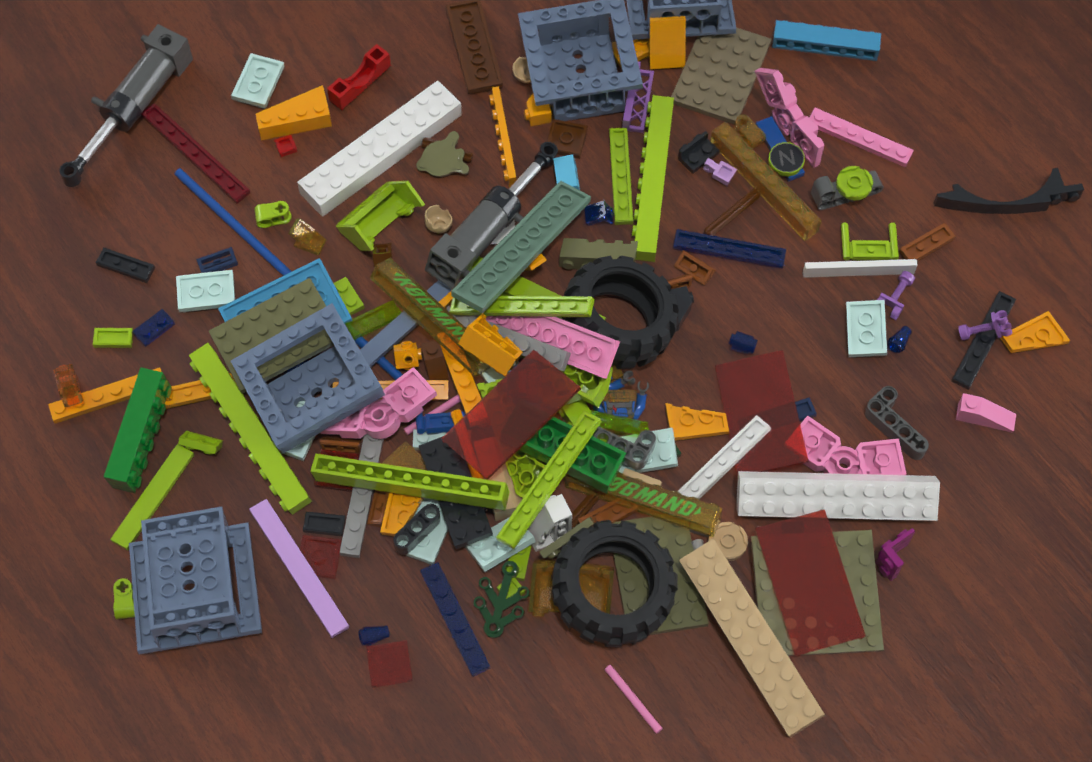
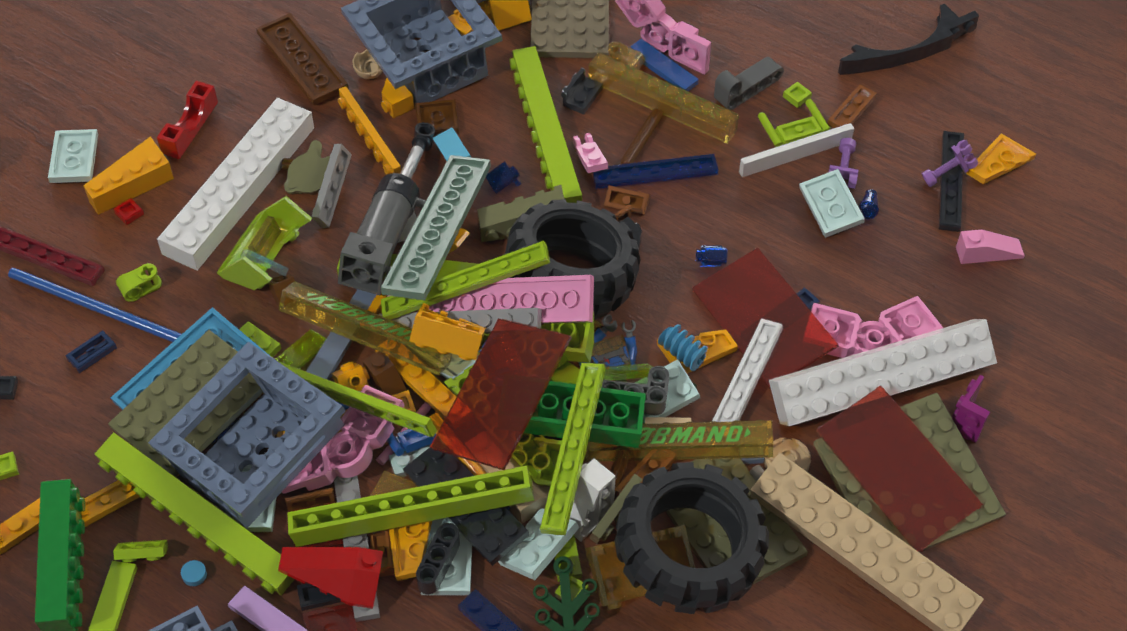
camera: 20 degrees left, 10 degrees down
(153, 327) = (38, 443): clear blue plate -> none
(205, 290) = (87, 384): light aqua plate -> none
(233, 474) = (193, 573): none -> dark azure tile
(306, 237) = (188, 294): clear yellow slope -> none
(339, 514) = (341, 571): none -> red wedge
(374, 231) = (265, 262): none -> clear light blue tile
(383, 208) = (265, 237): none -> clear yellow tile
(400, 379) = (369, 403): none -> lime tile
(437, 219) = (330, 234): tan hair -> none
(454, 176) = (331, 185): none -> light grey plate
(621, 176) = (510, 137): lime tile -> none
(630, 103) = (493, 63): medium lavender fence -> none
(679, 216) = (590, 154): none -> bright pink hinge
(680, 419) = (683, 347): none -> dark azure piece
(721, 172) = (614, 102): lavender plate -> none
(786, 159) = (675, 70): black tile -> none
(854, 183) = (755, 71): lime tile -> none
(861, 137) = (745, 34): bright pink plate -> none
(885, 214) = (797, 94): none -> lime plate
(899, 424) = (903, 286): dark grey beam -> none

